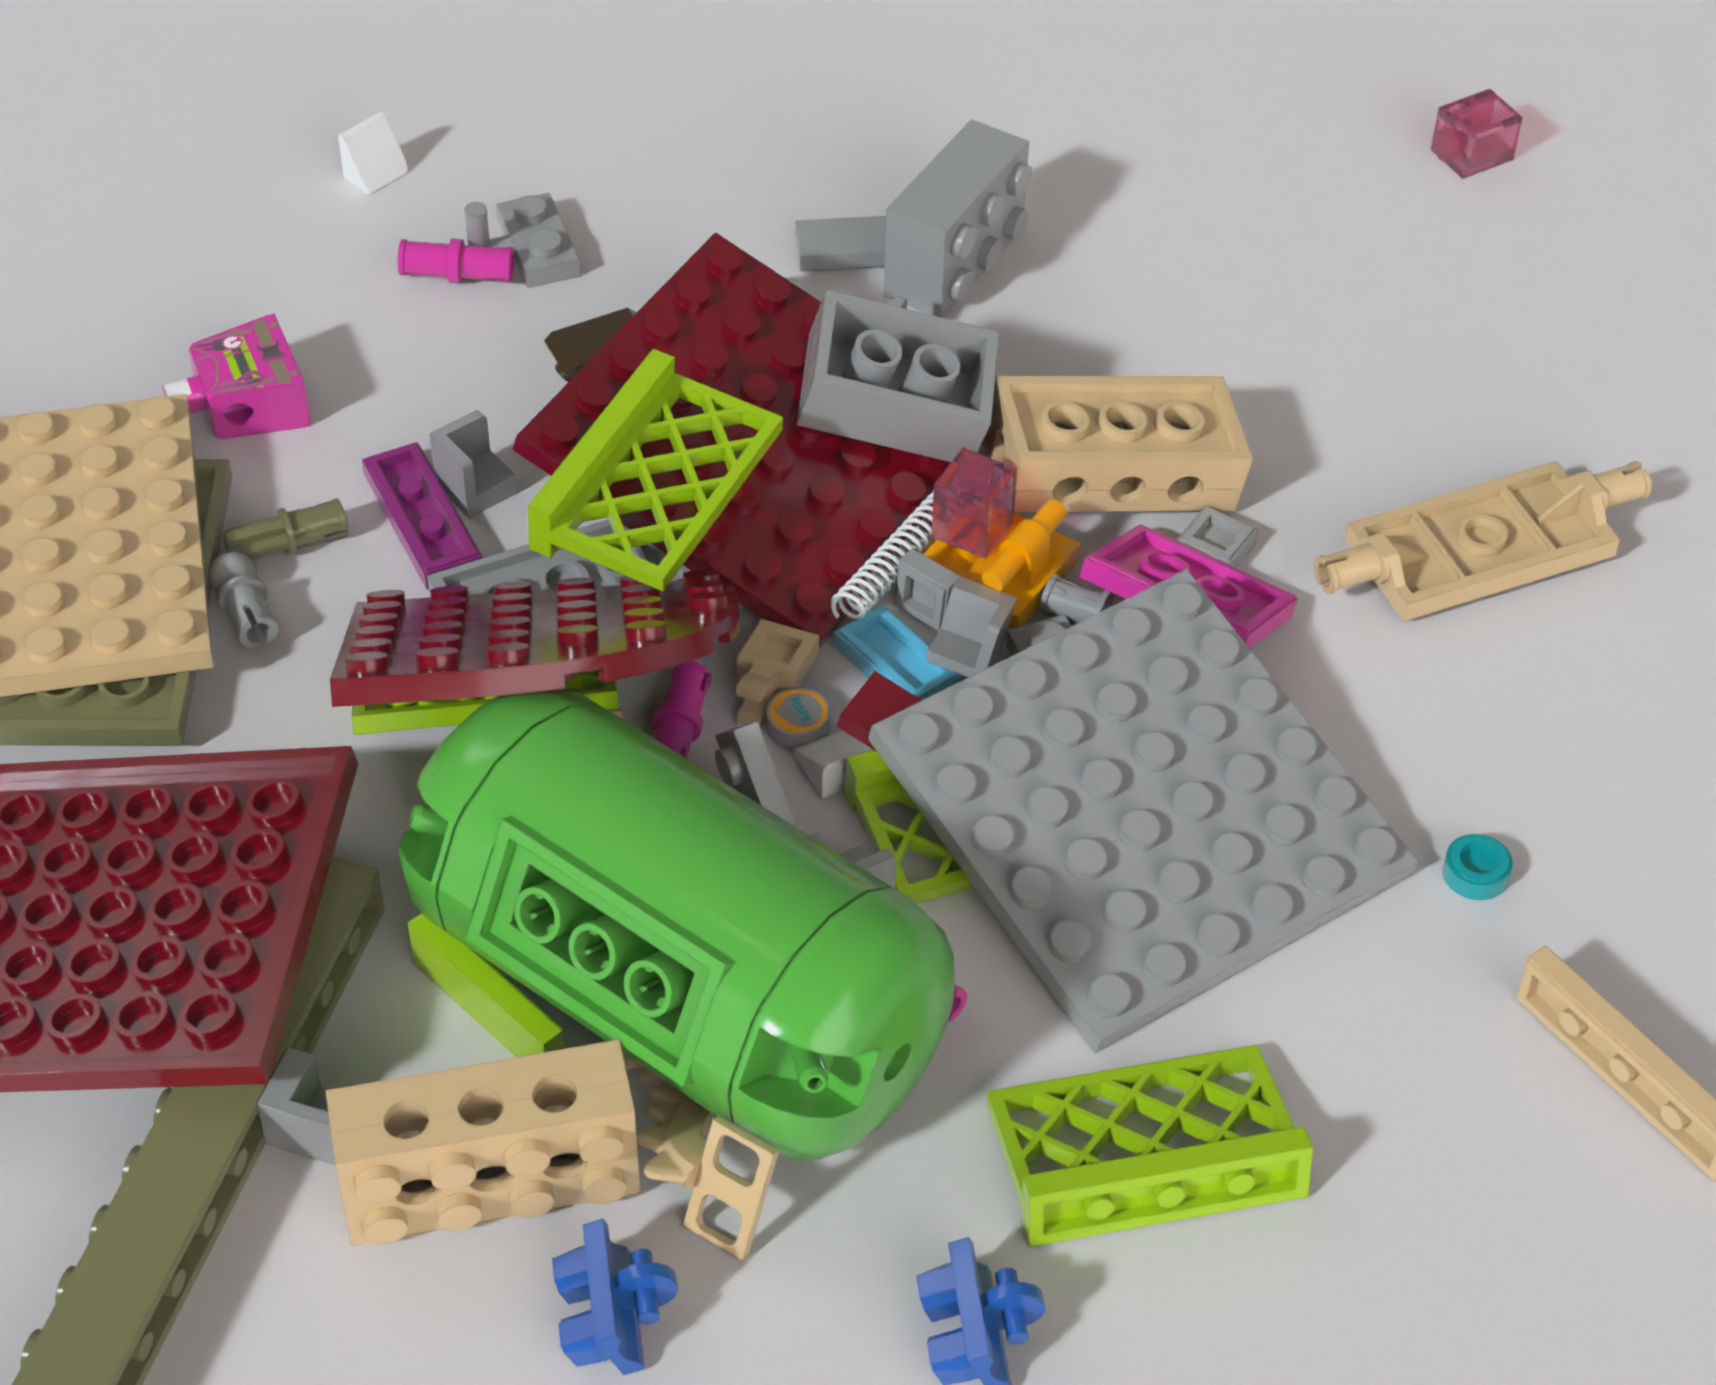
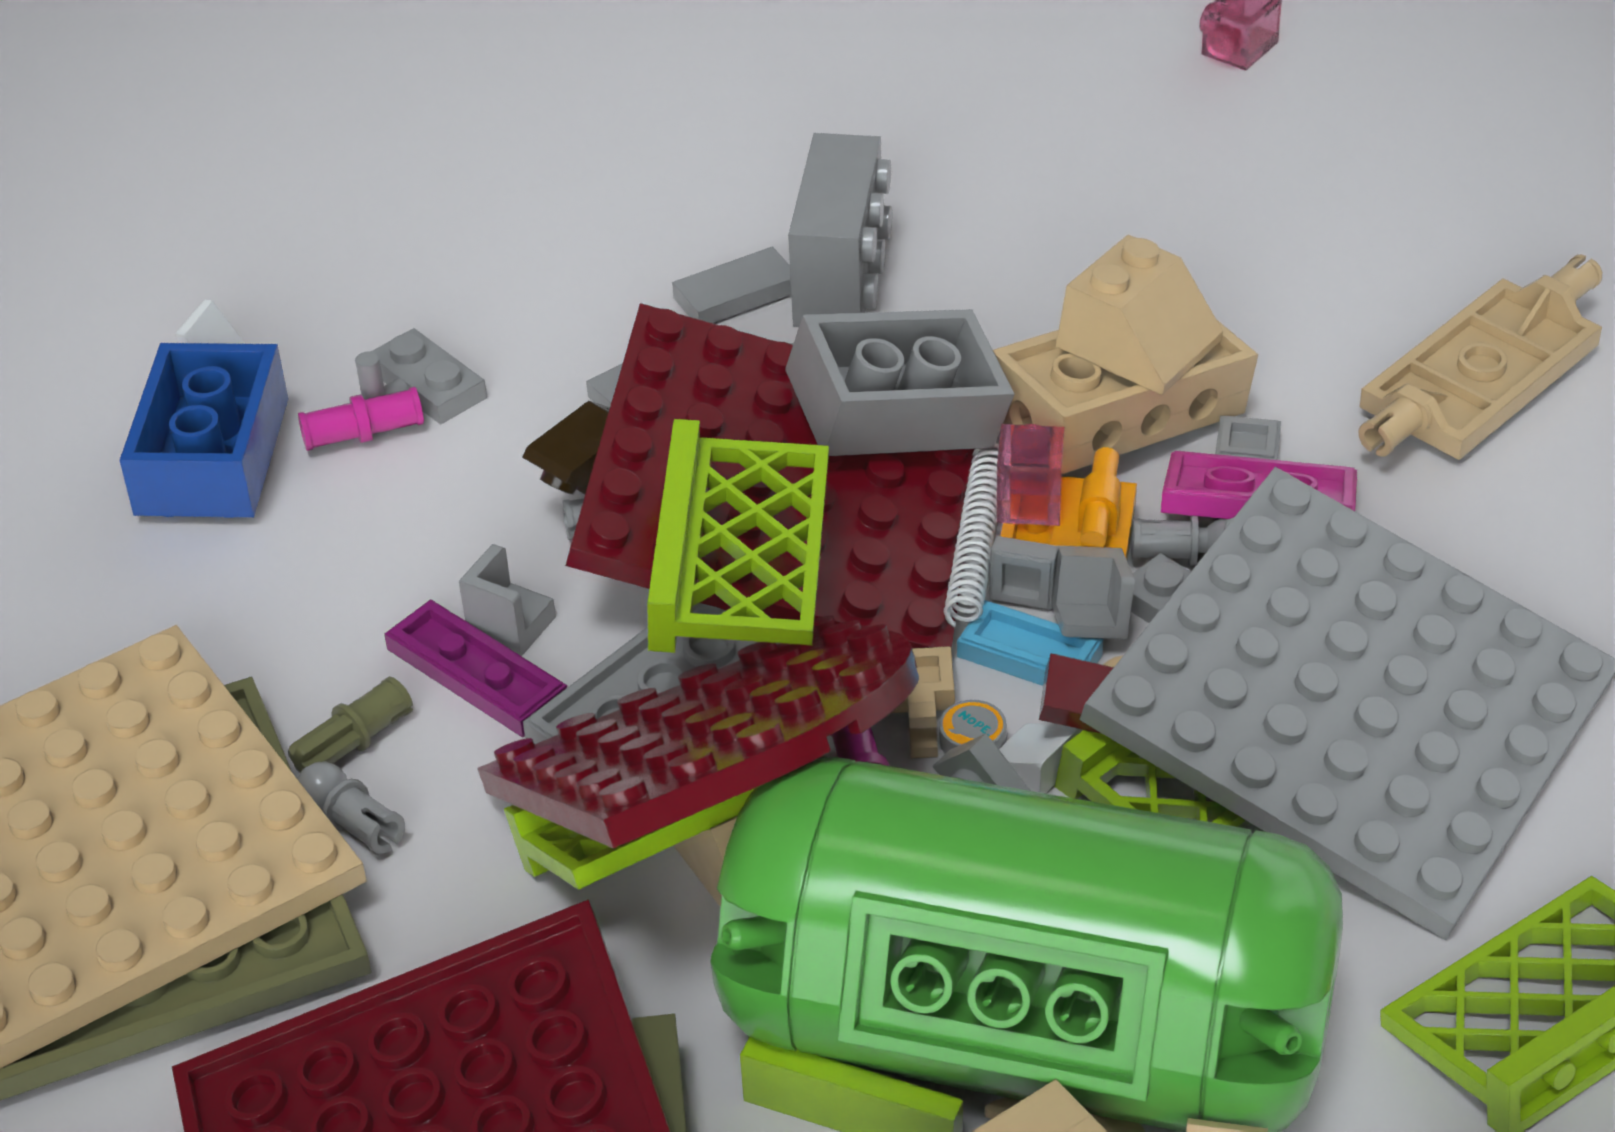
camera: 20 degrees left, 5 degrees down
(245, 381) = (222, 595): dark pink torso -> none
(315, 229) = (205, 430): none -> blue brick
(1146, 386) = (1138, 315): none -> tan slope

